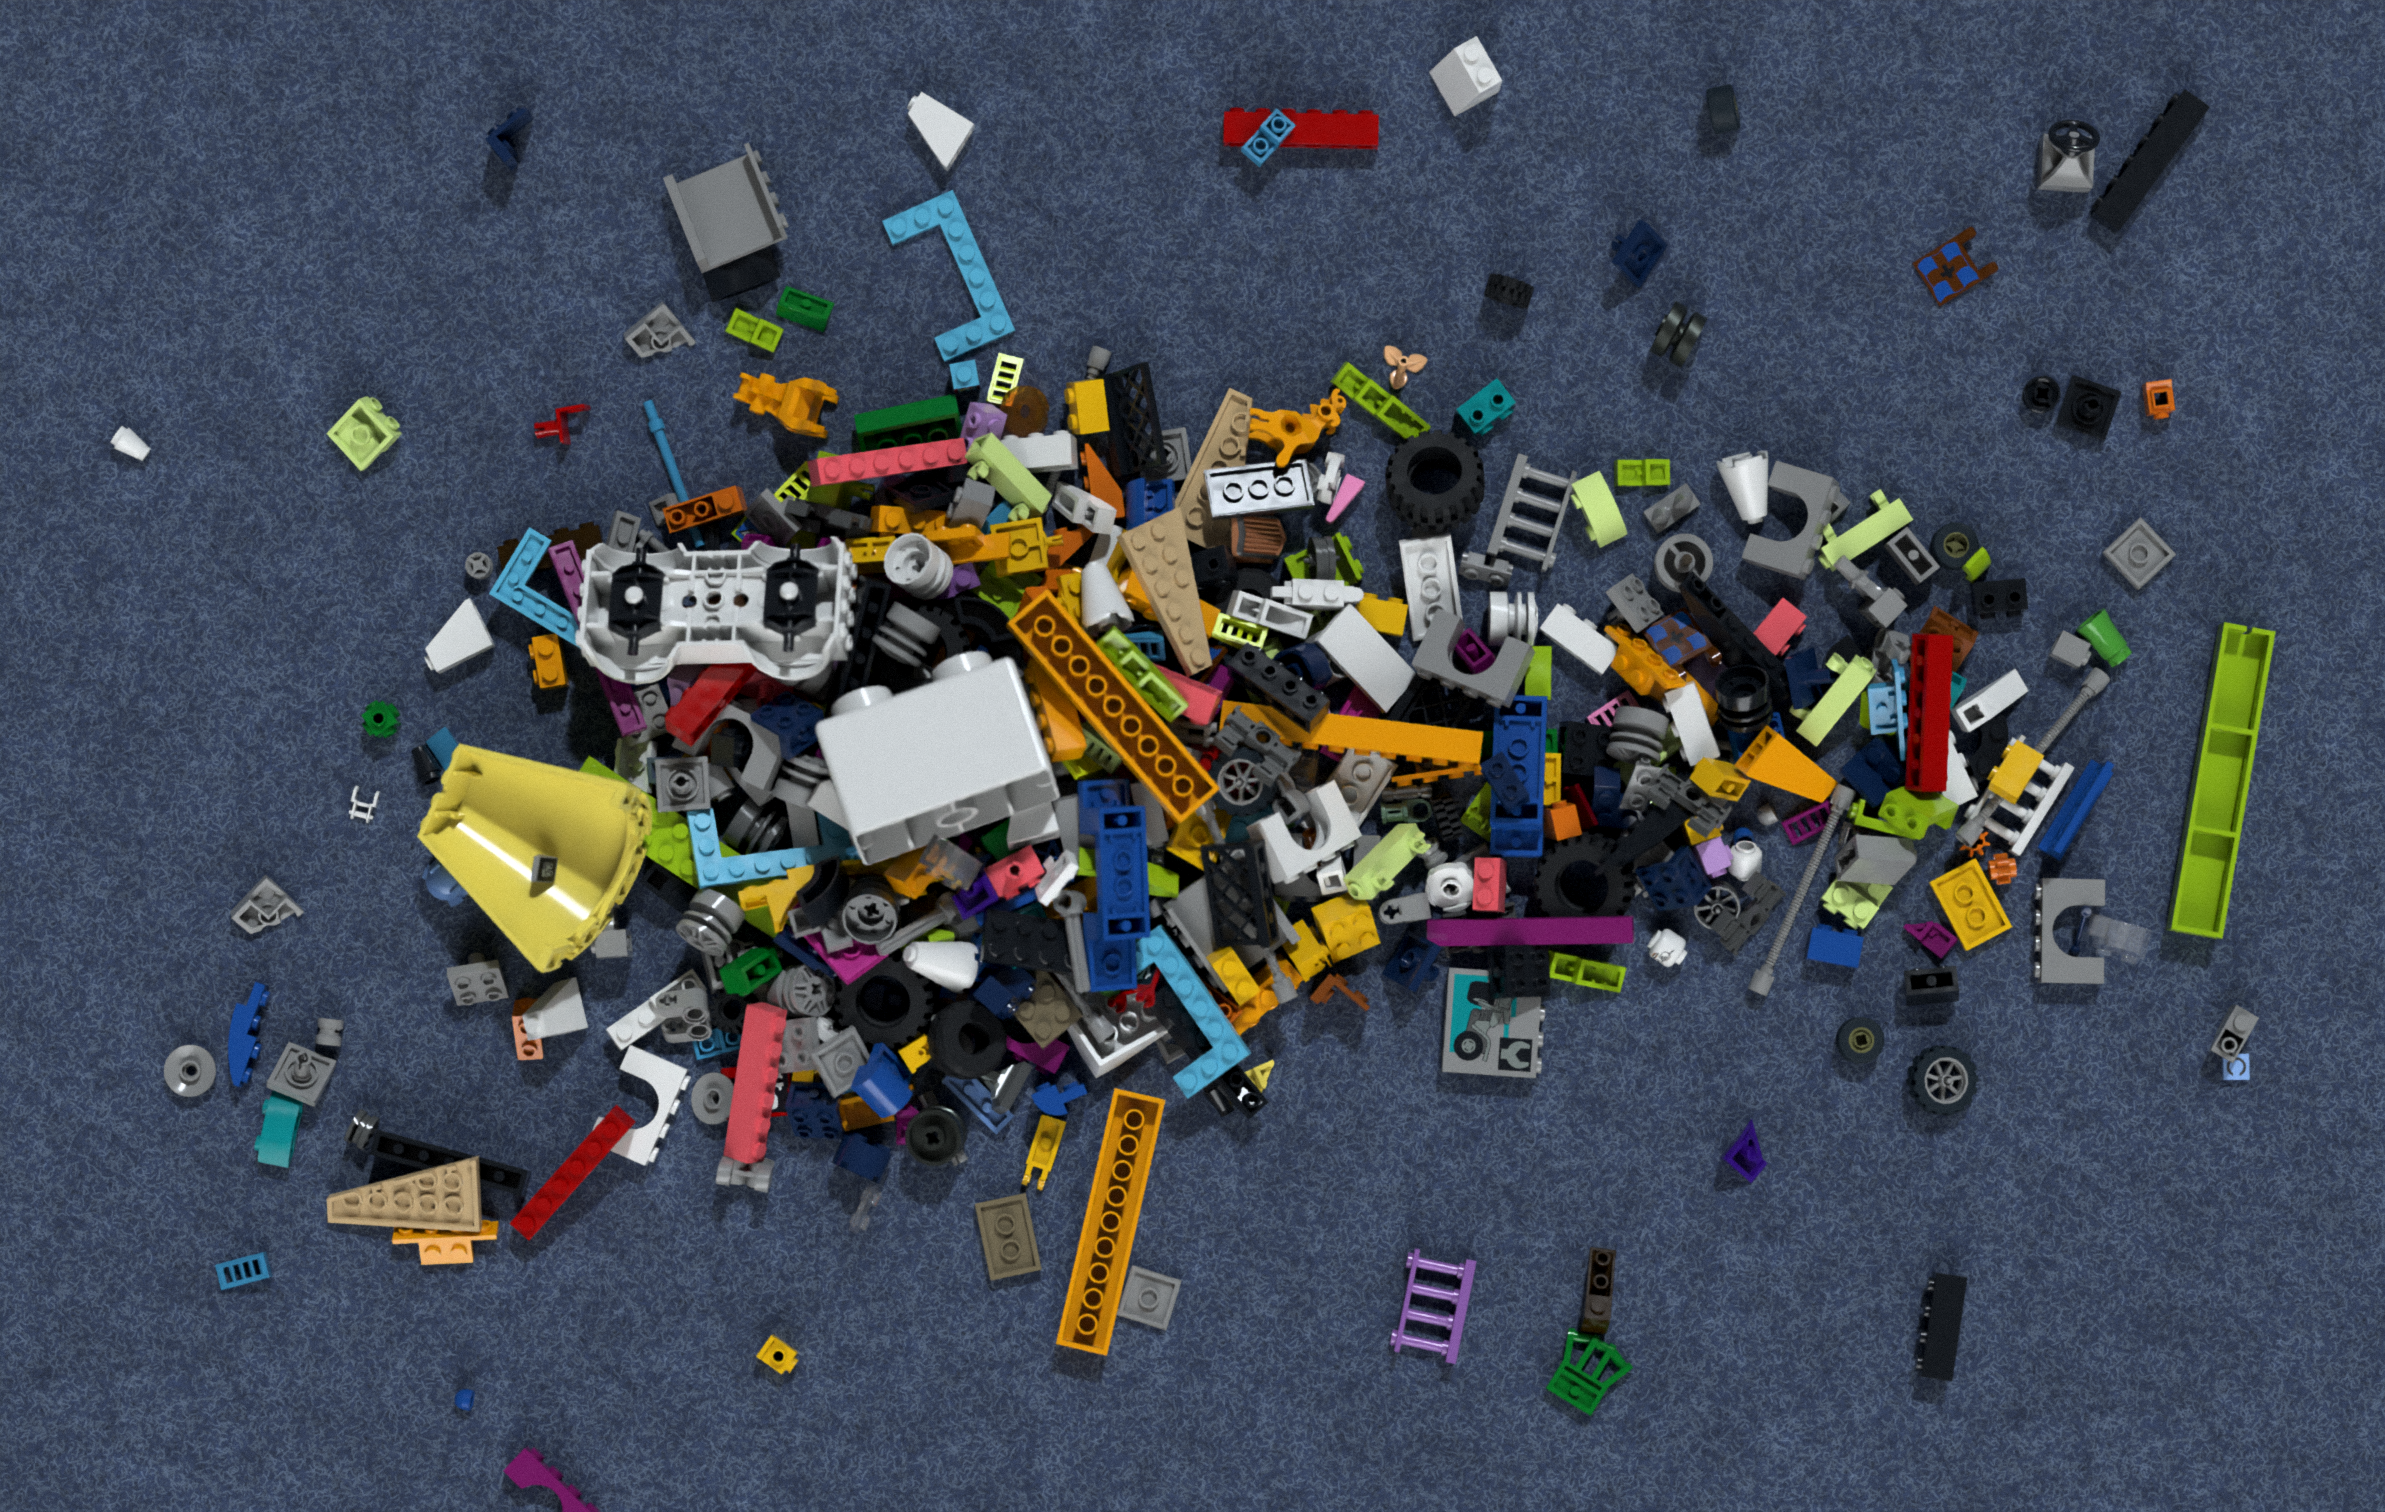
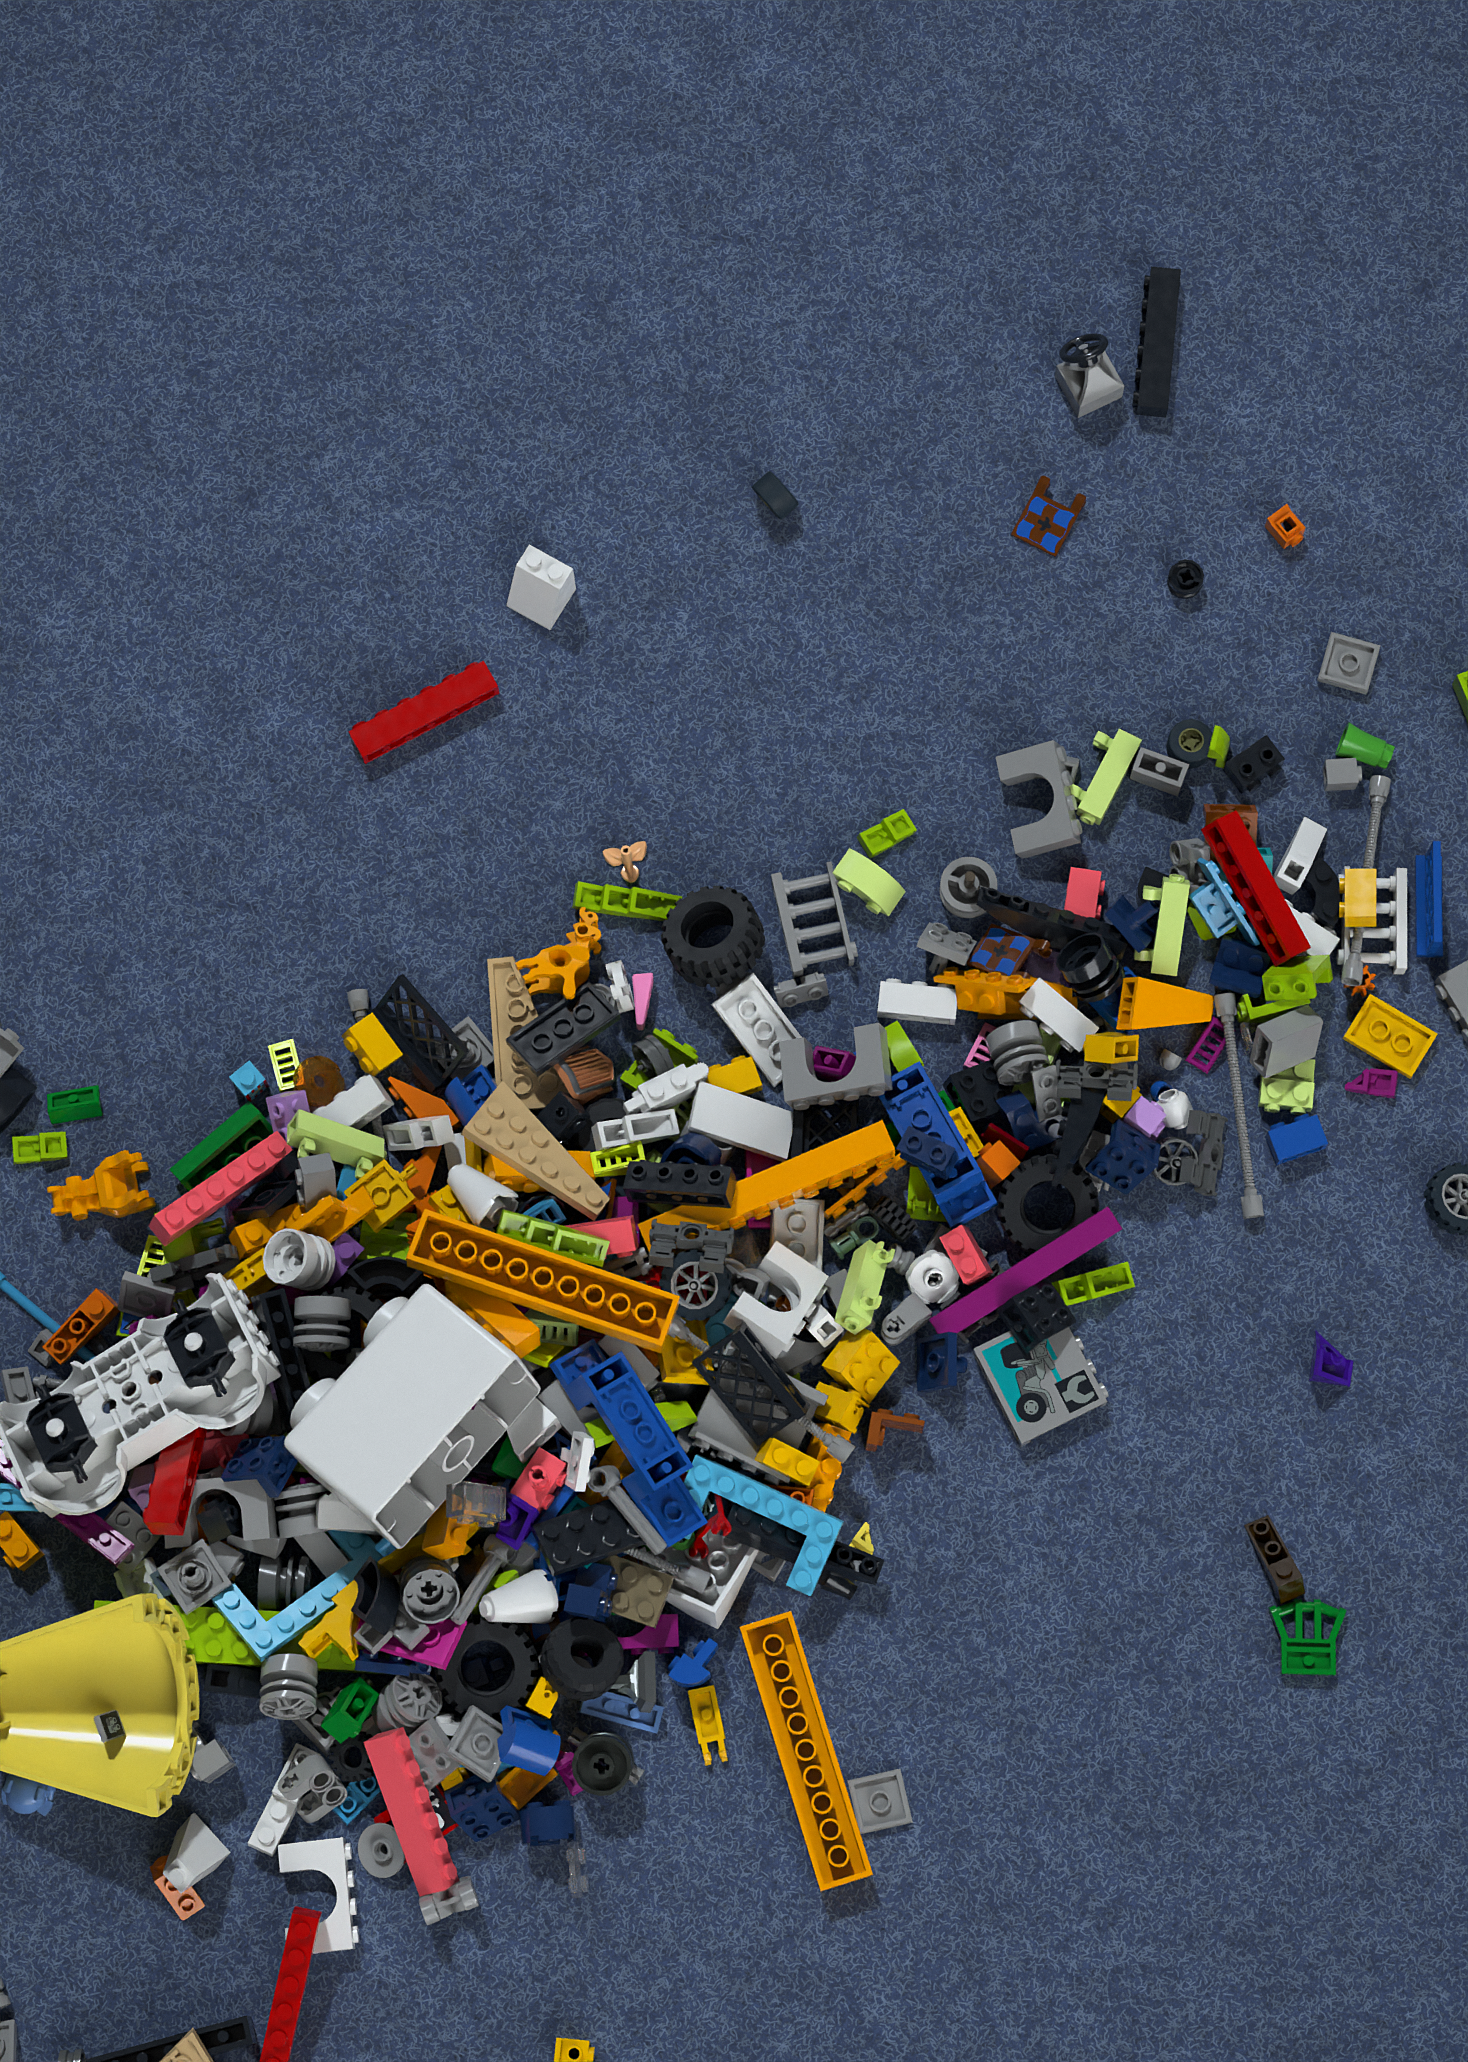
camera: 30 degrees left, 10 degrees down
(477, 981) = (105, 1868): light grey plate -> none
(940, 128) = (107, 883): white slope -> none
(948, 214) = (247, 1019): medium azure plate -> none
(1008, 1236) = (721, 1820): dark tan plate -> none
(1268, 137) = (399, 731): dark azure slope -> none
(1457, 1297) = (1164, 1663): medium lavender fence -> none
(1486, 407) = (720, 853): teal brick -> none
(1509, 291) = (682, 744): black tyre -> none
(1511, 618) = (843, 1017): white wheel -> none
(1638, 252) = (773, 651): dark blue tile -> none
(1667, 947) = (1153, 1222): white head -> none
(1671, 508) = (930, 849): light grey tile -> none
(1678, 334) = (848, 698): pearl dark grey wheel -> none
(1747, 483) = (983, 790): white cone -> none
(1851, 1040) = (1365, 1215): black wheel -> none
(1880, 604) = (1156, 824): light grey brick -> none
(1931, 985) = (1400, 1123): black brick -> none
(2001, 868) = (1398, 989): orange gear -> none
(2088, 408) = (1231, 568): black plate -> none

